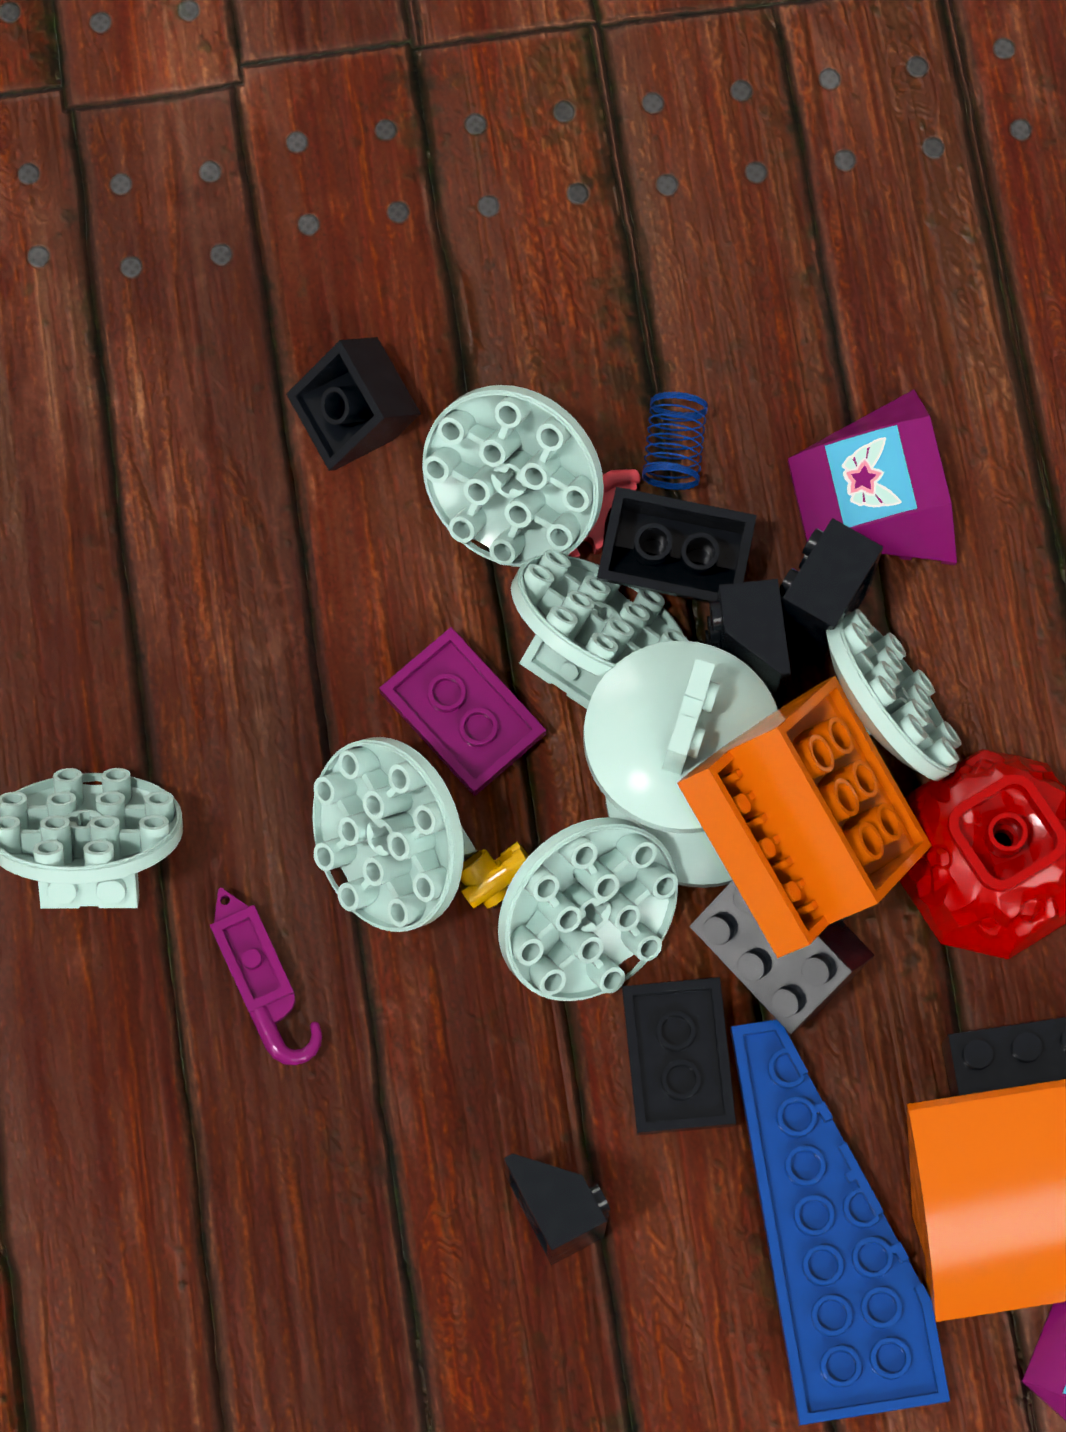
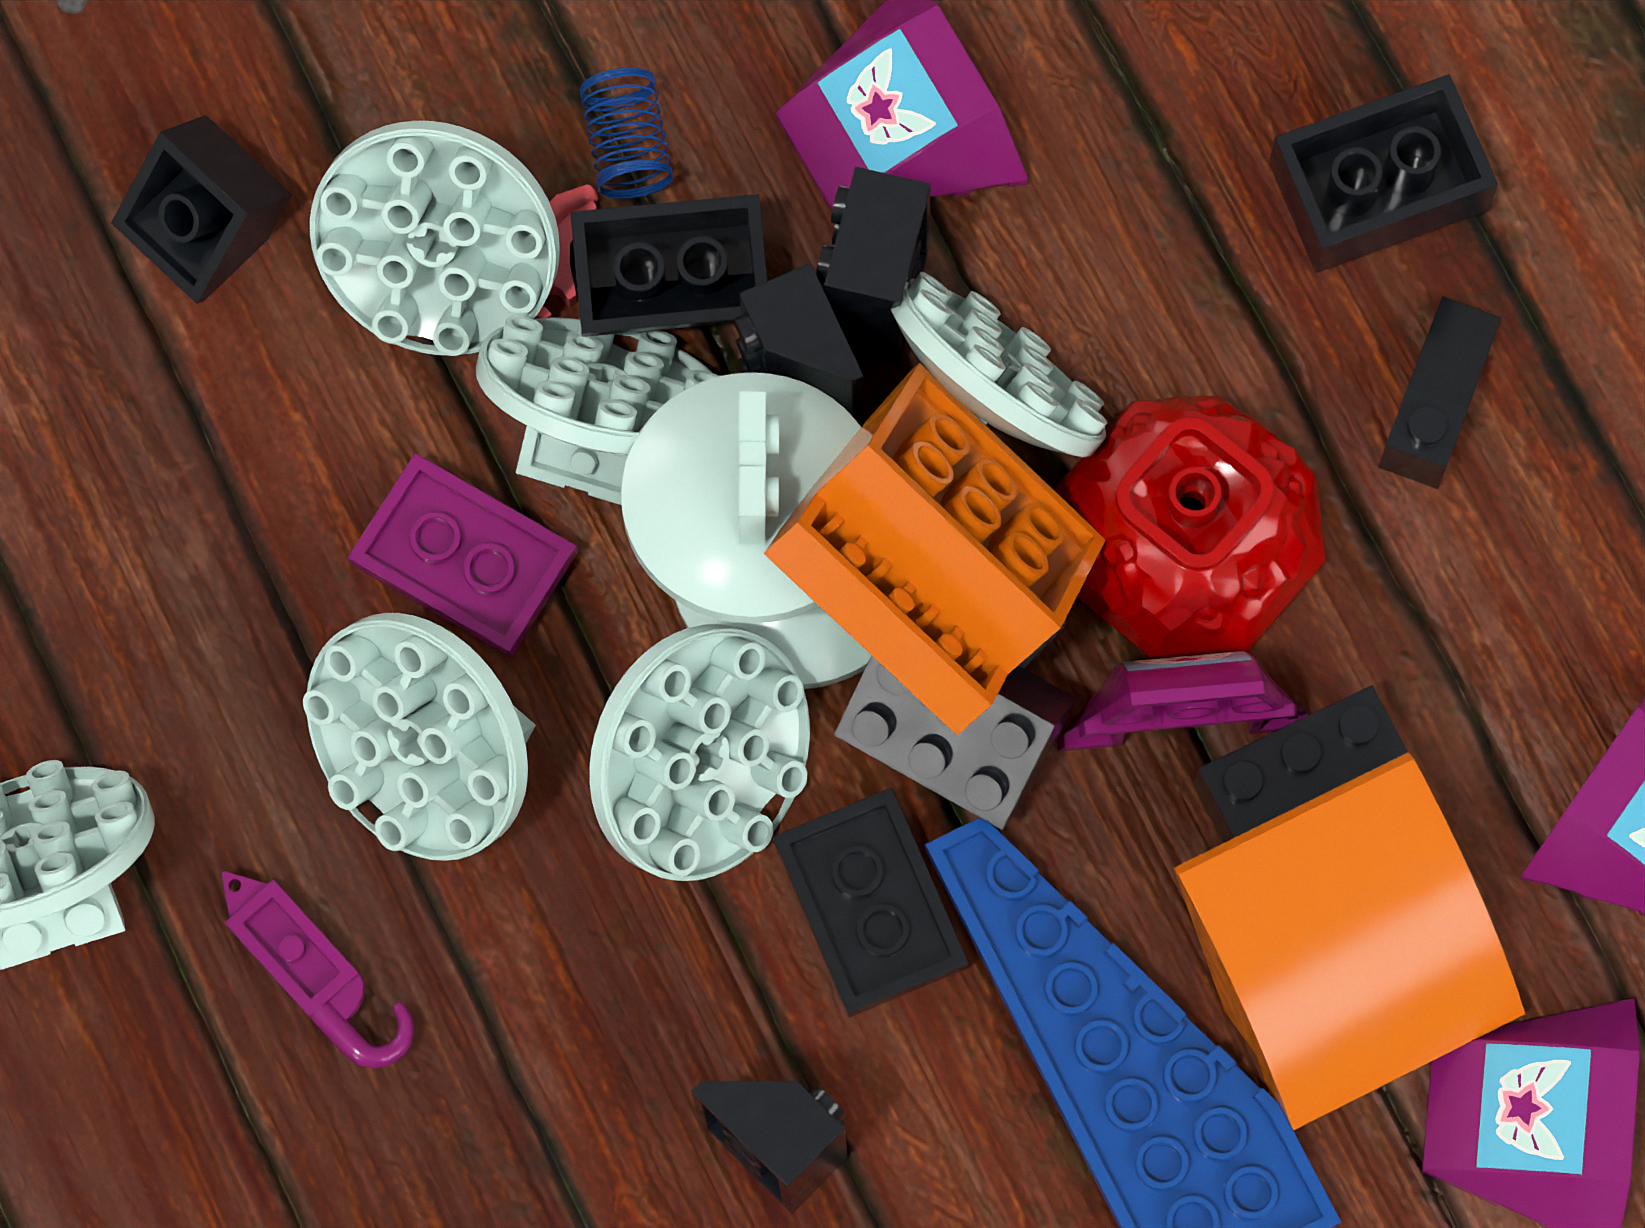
camera: 15 degrees left, 0 degrees up
(488, 879) = (561, 756): yellow plate -> none
(952, 976) = (1180, 695): none -> magenta wedge

